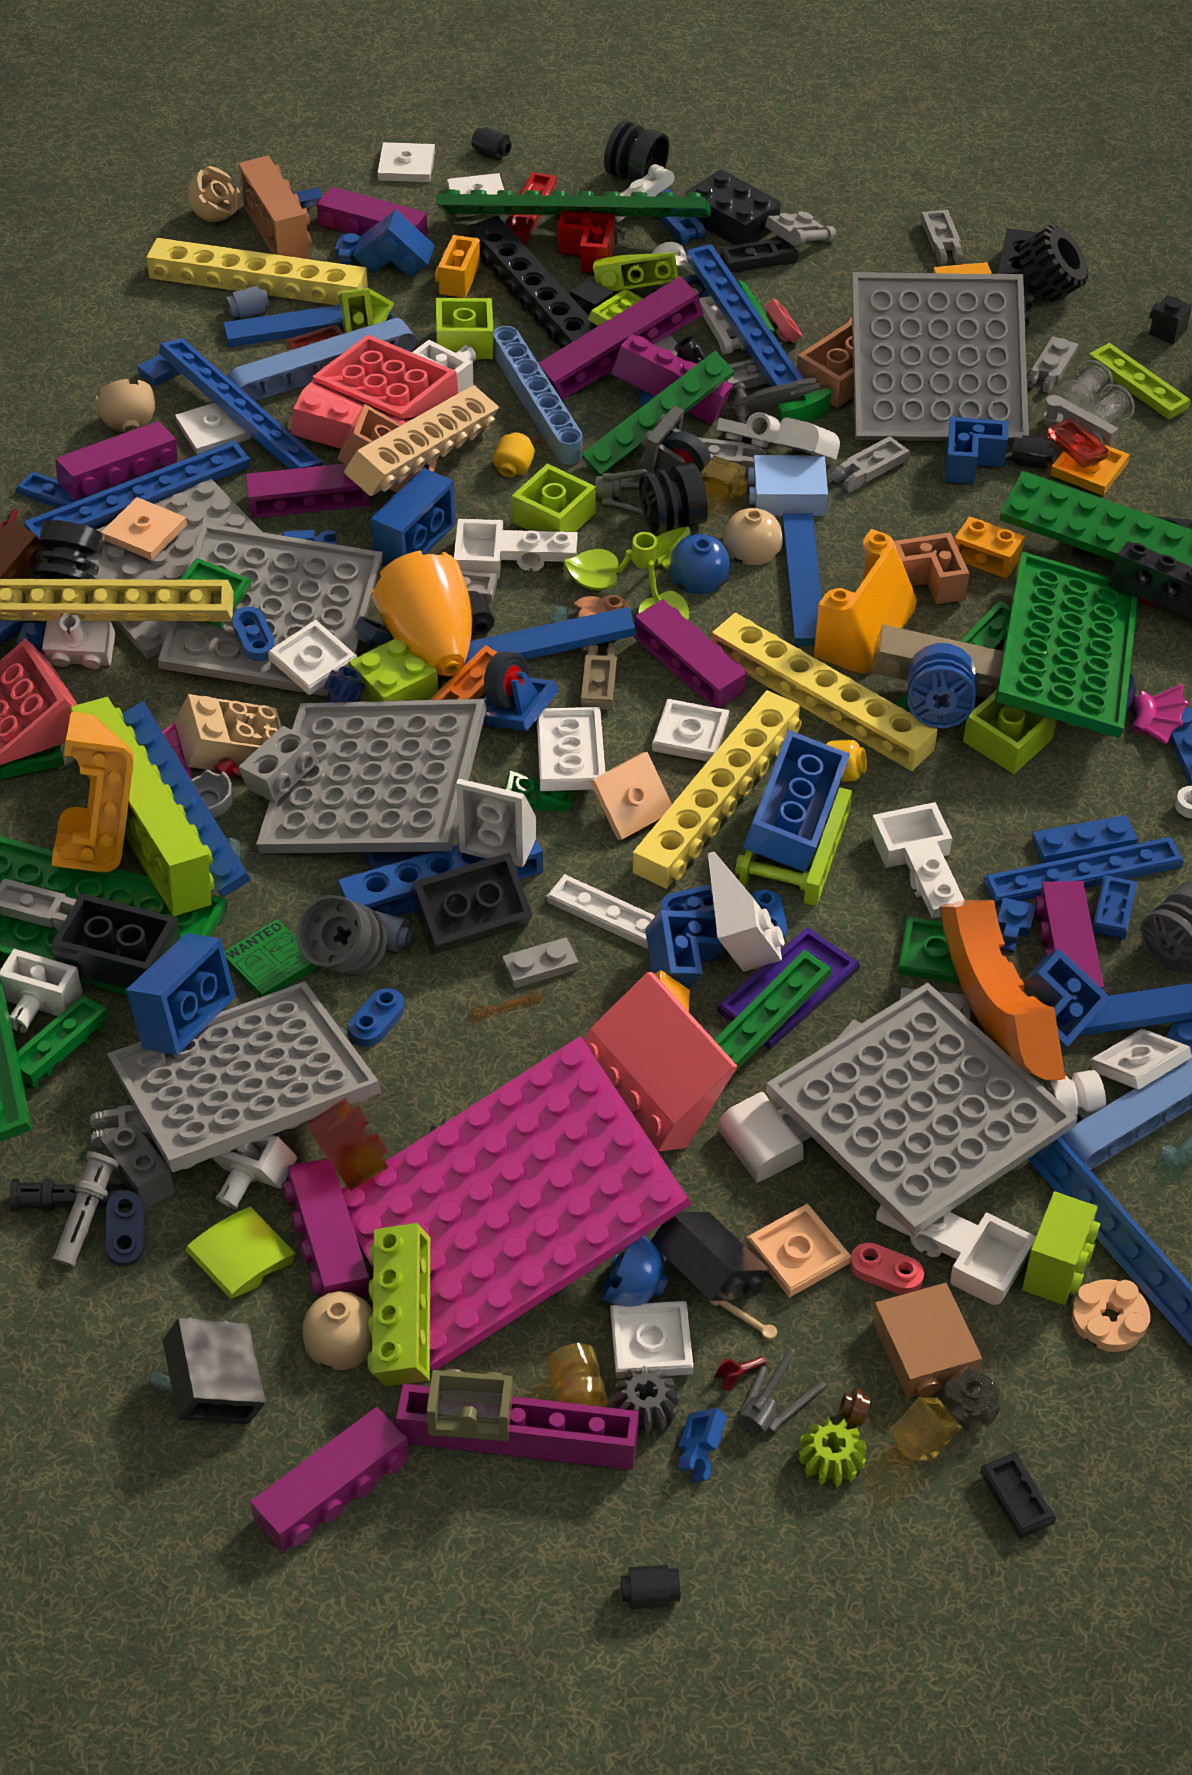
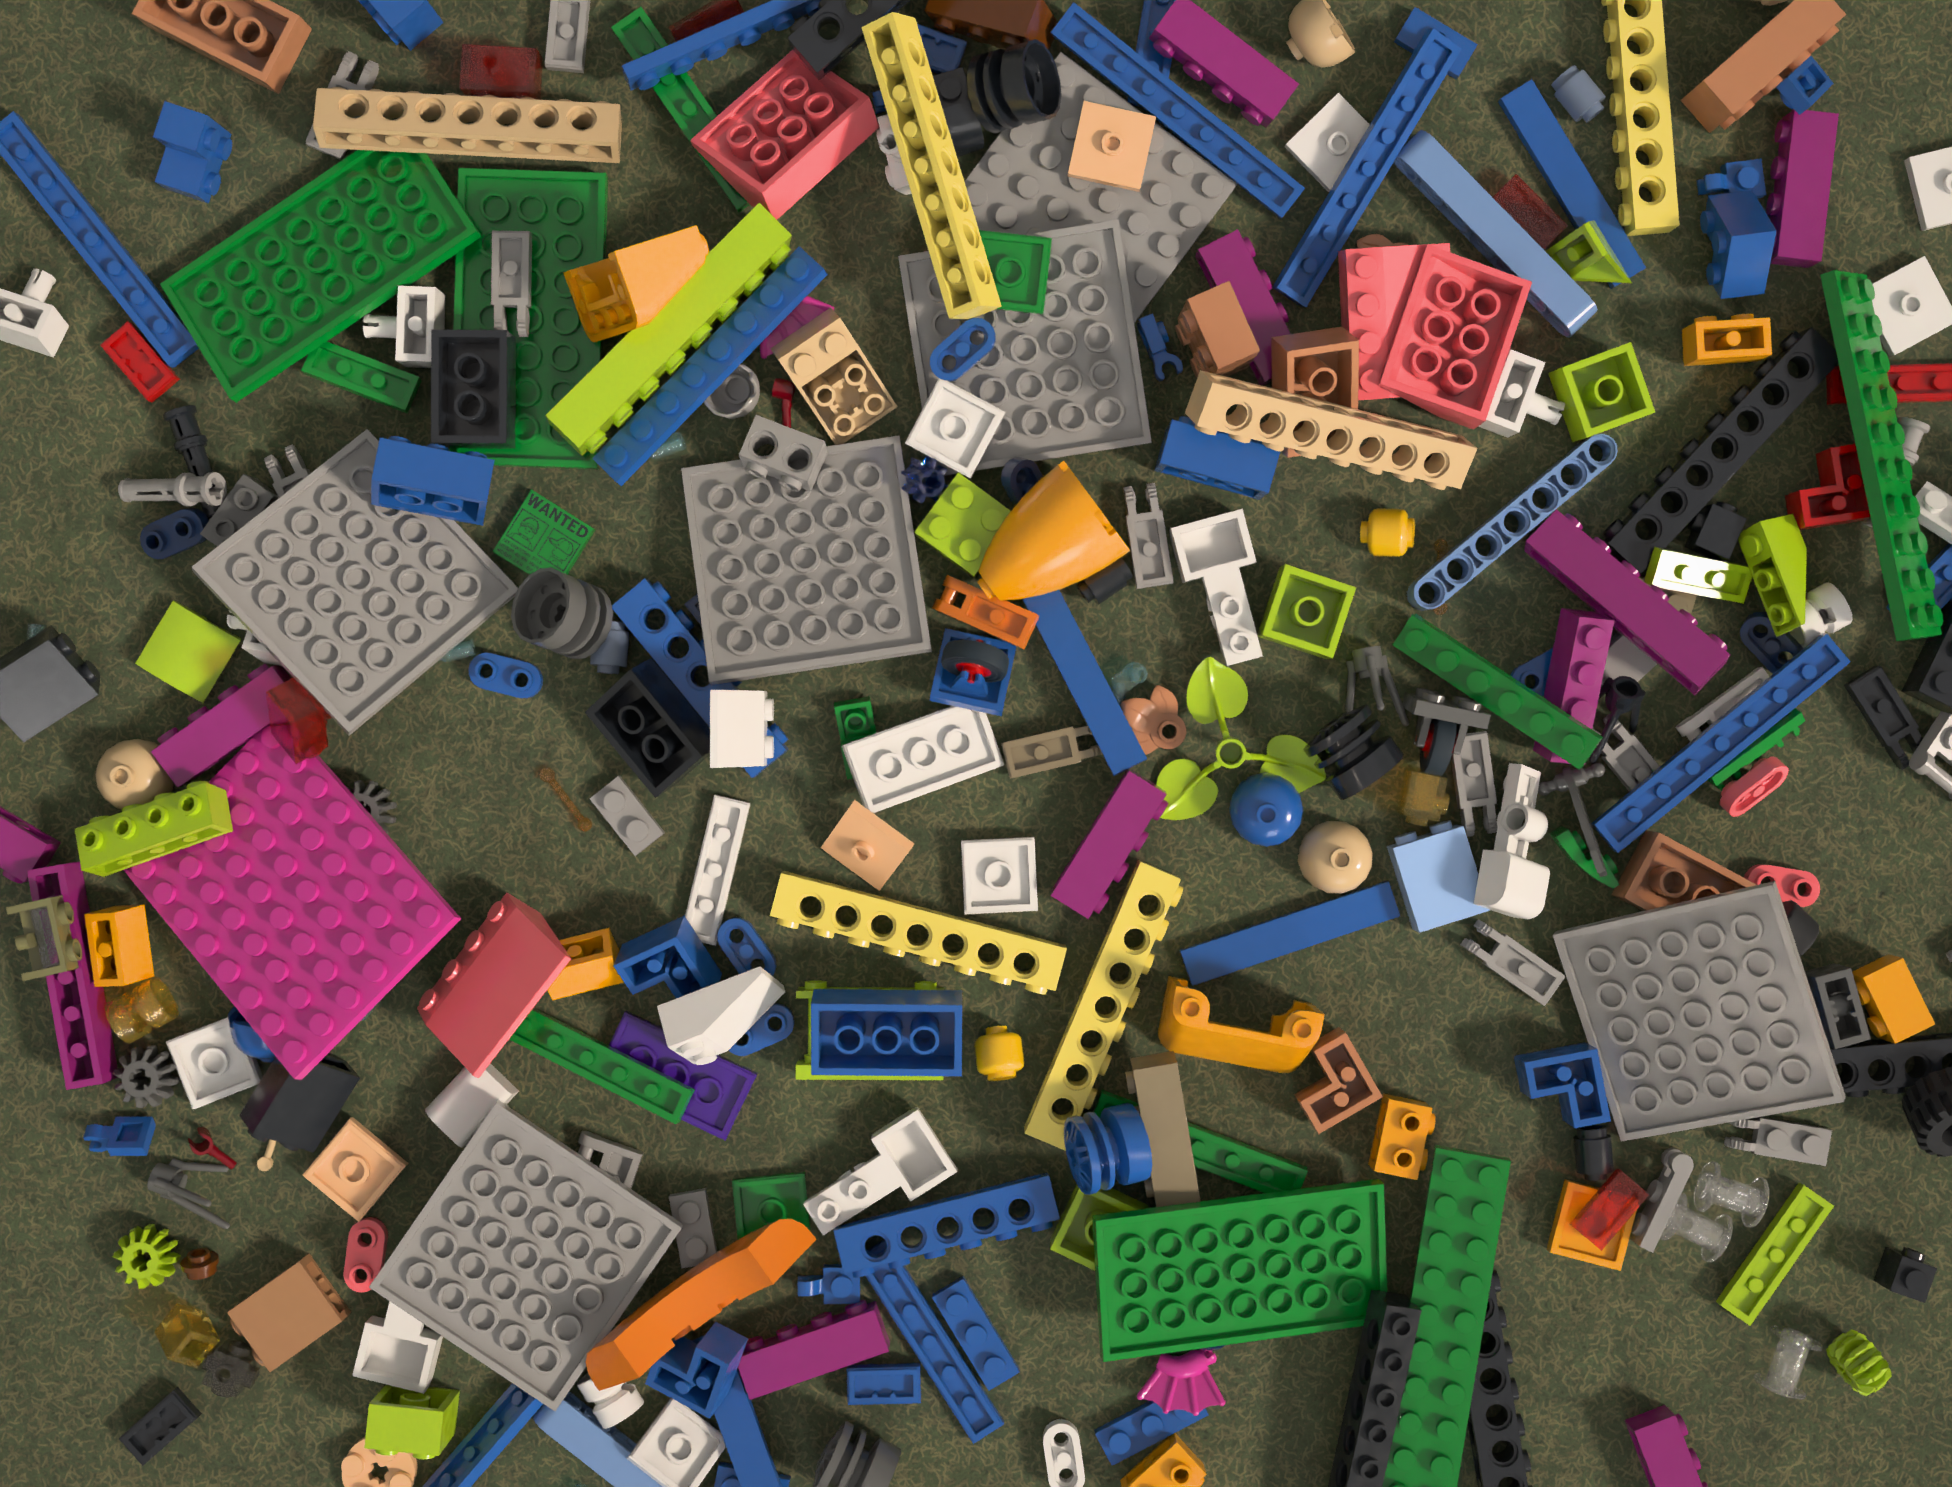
camera: 75 degrees right, 40 degrees up
(319, 488) = (1216, 332): none -> nougat brick
(526, 1372) = (119, 945): none -> light orange brick
(979, 823) = (853, 1235): none -> blue brick

